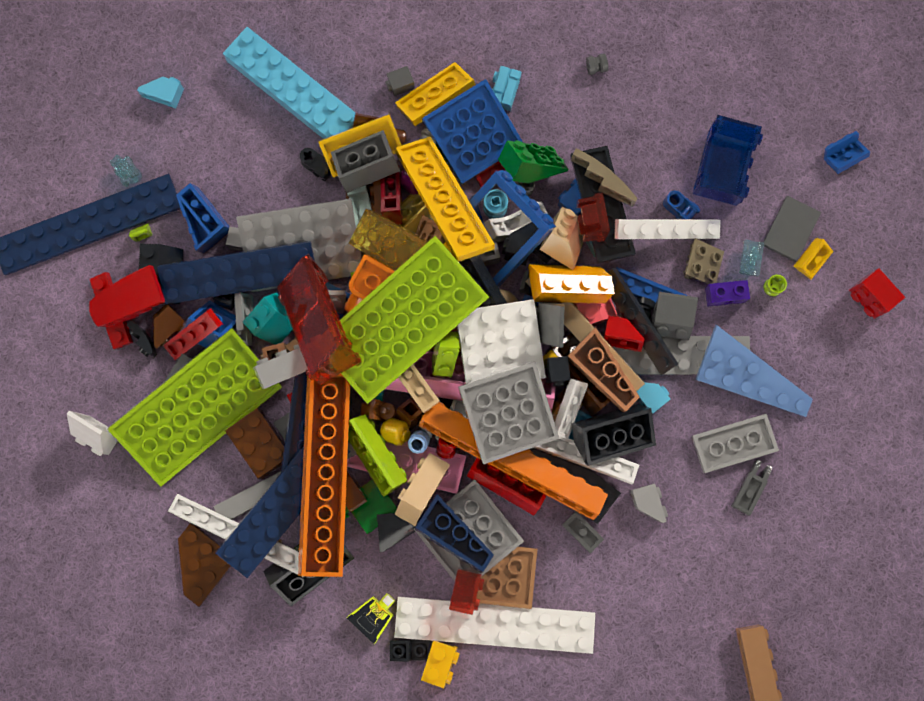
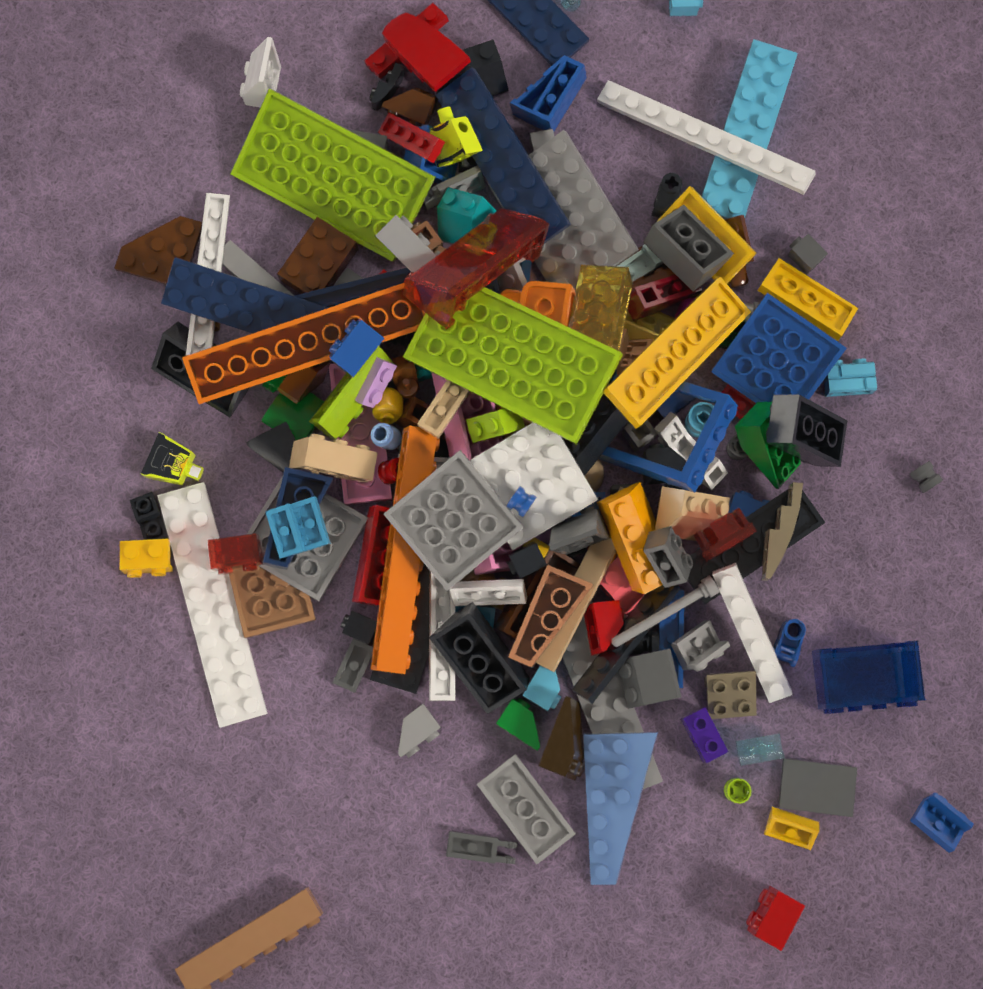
camera: 65 degrees right, 0 degrees up
(140, 233) = (508, 36): lime slope -> none
(204, 298) = (458, 138): none -> neon yellow torso
(283, 116) = (707, 137): none -> white plate
(346, 436) = (355, 346): none -> blue brick
(377, 434) = (376, 382): none -> lavender plate
(466, 534) = (297, 527): none -> dark azure slope
(515, 355) = (521, 501): none -> blue wheel
(535, 131) = (806, 430): none -> black brick
(556, 517) = (359, 627): none -> black brick
(594, 265) = (668, 556): none -> dark grey brick
(625, 248) = (705, 589): none -> light grey piece
(663, 271) = (699, 647): none -> light grey bracket
(670, 423) = (520, 722): none -> green slope
(703, 396) = (565, 745): none -> dark brown slope

